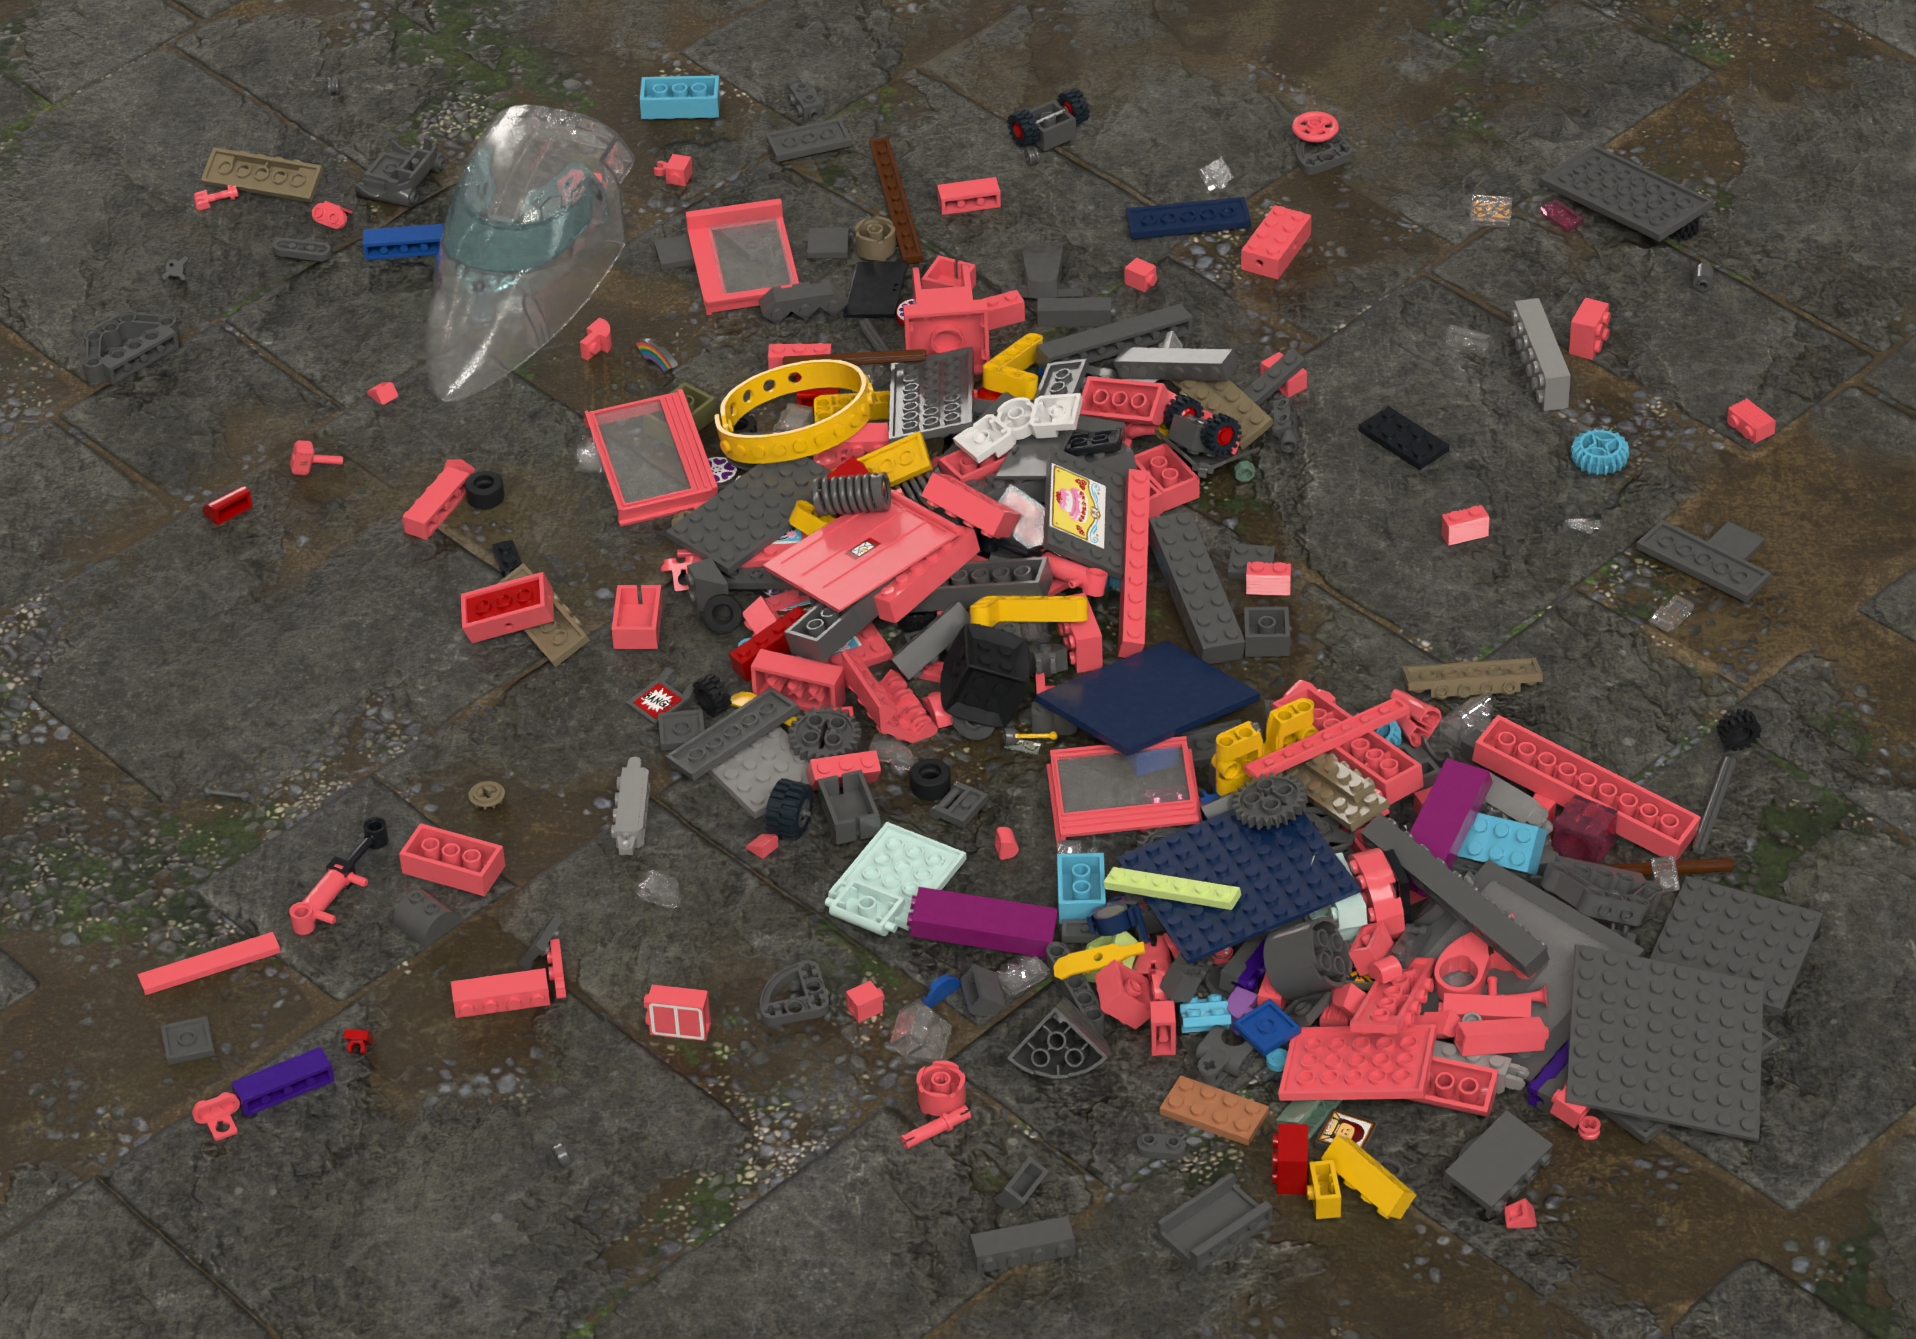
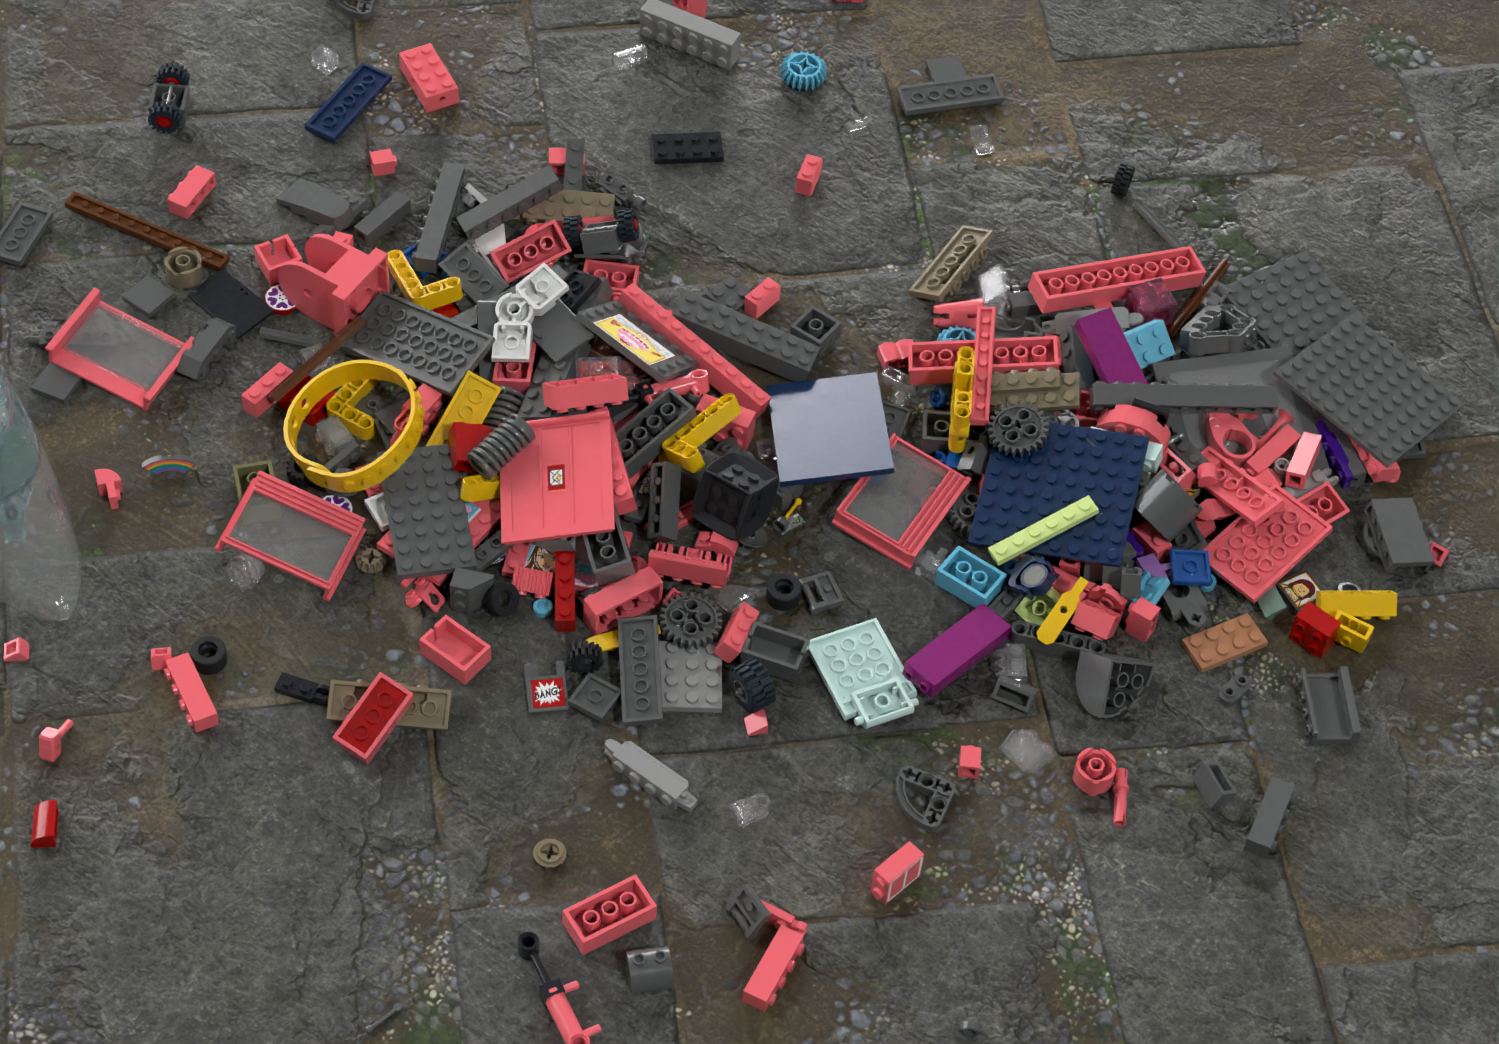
camera: 60 degrees left, 10 degrees up
(941, 988) = (993, 715): blue tile -> none
(1005, 843) = (883, 592): coral brick -> none

